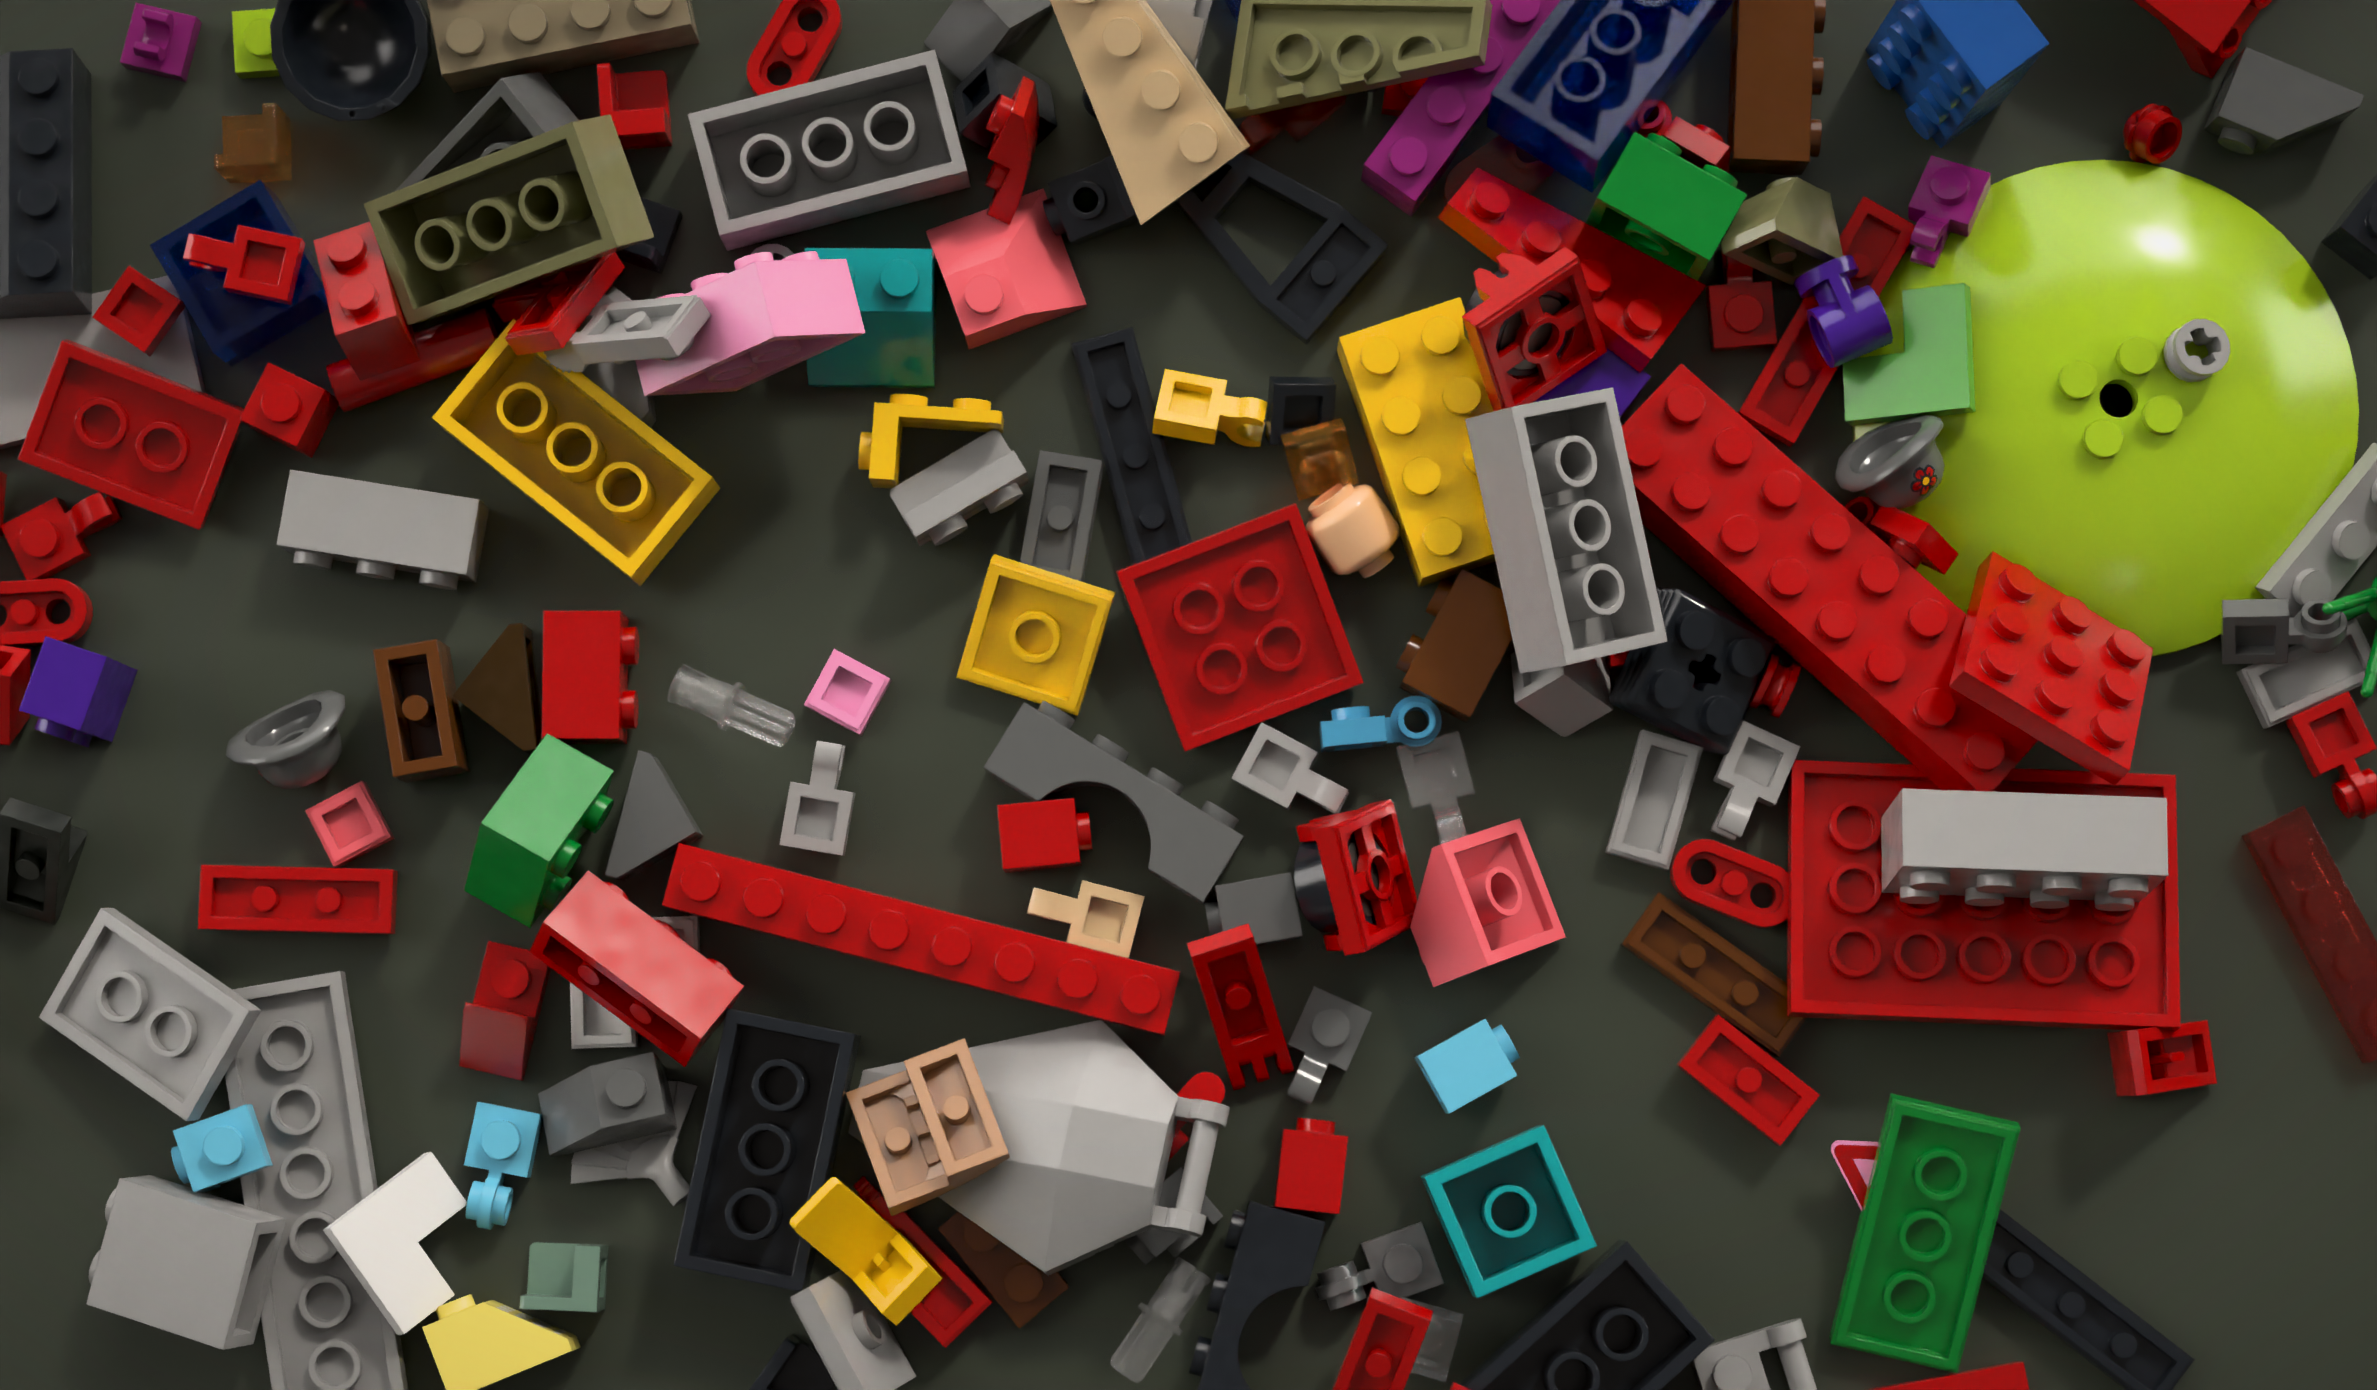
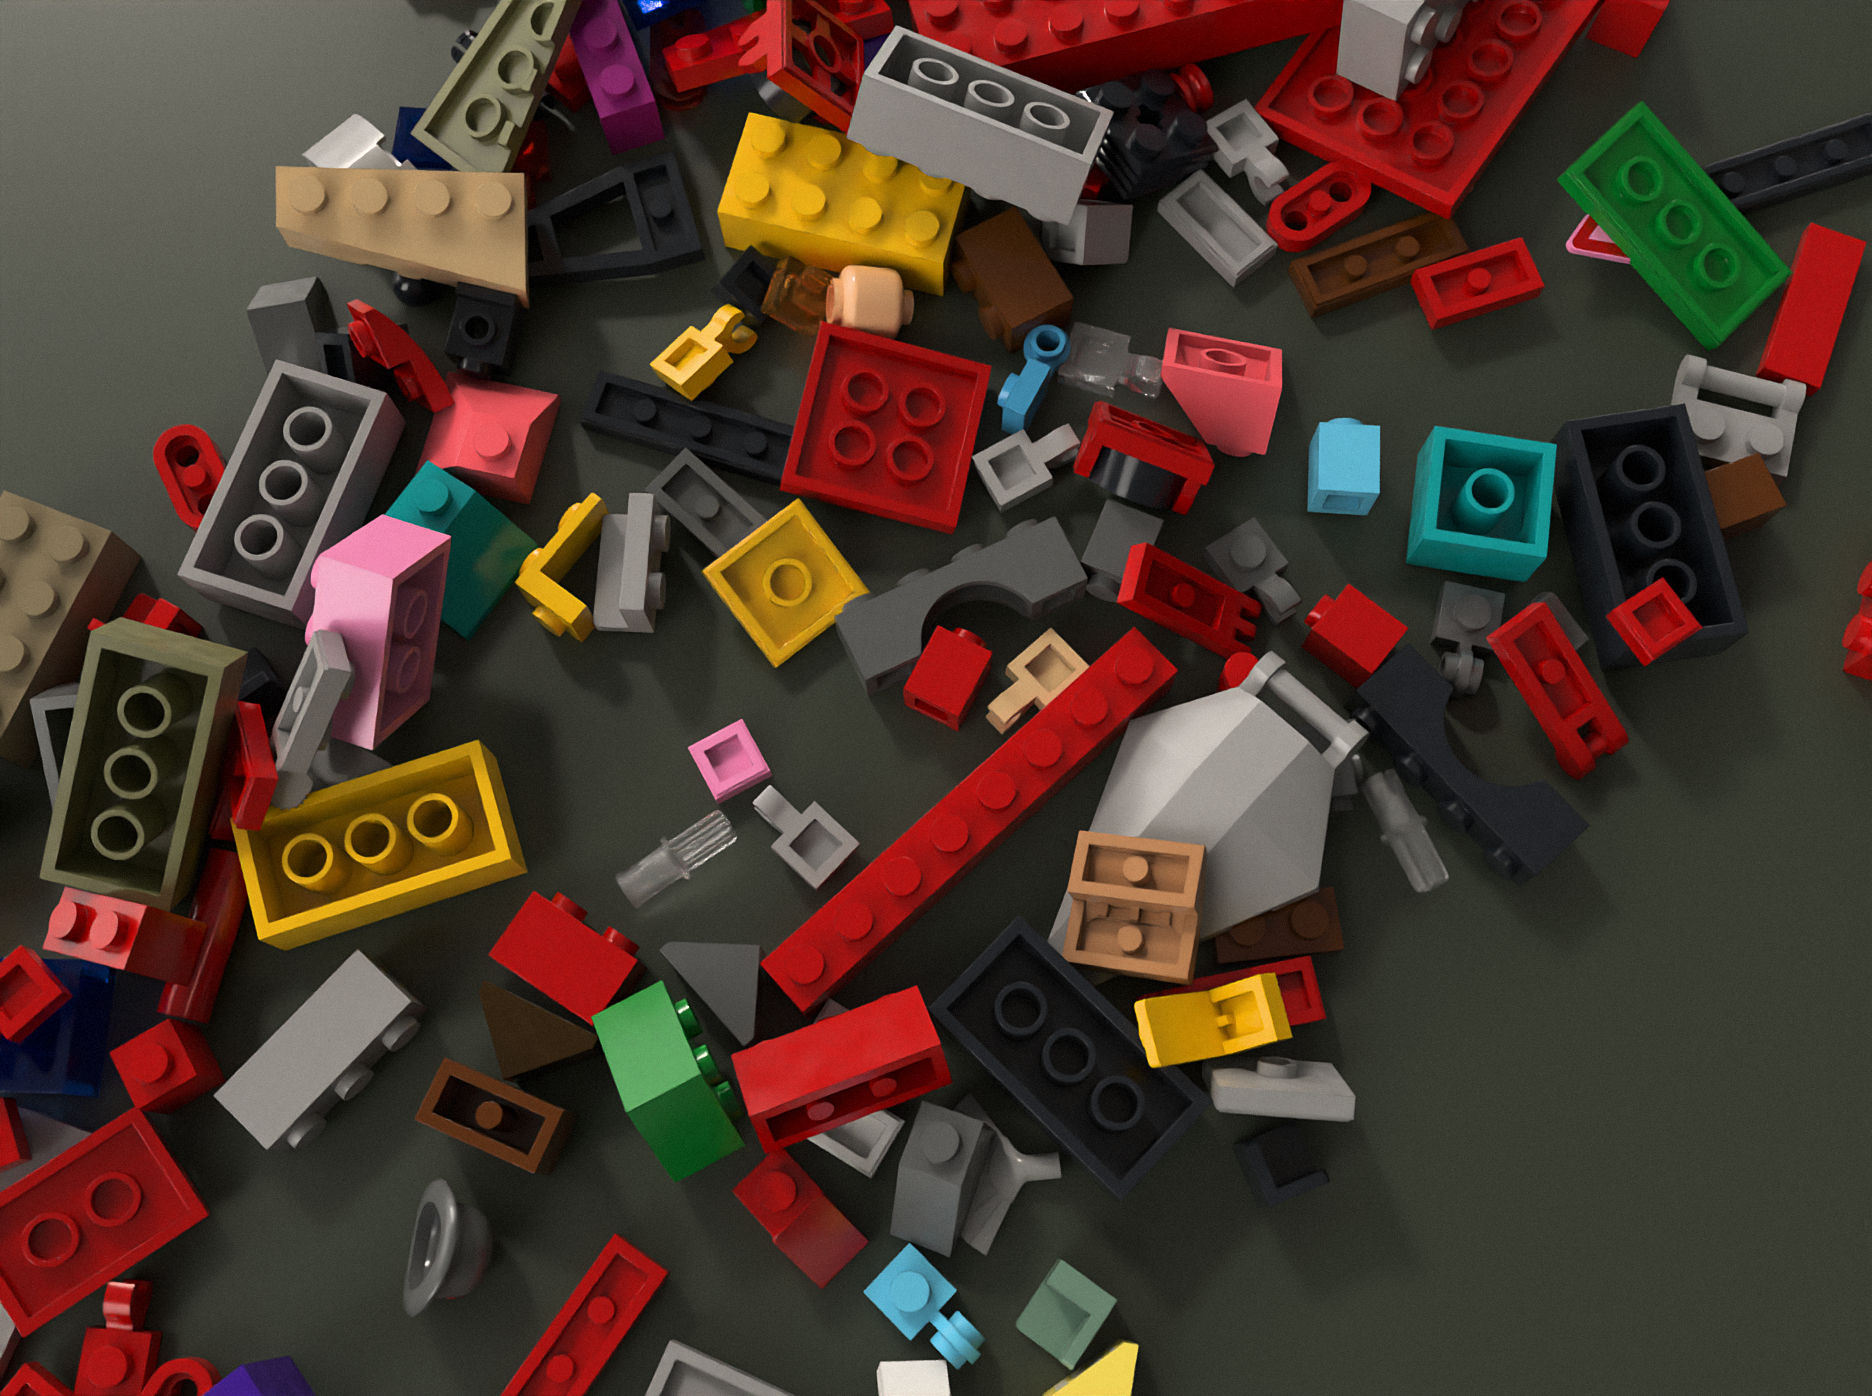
camera: 55 degrees left, 10 degrees down
(349, 824) = (550, 1250): coral tile -> none

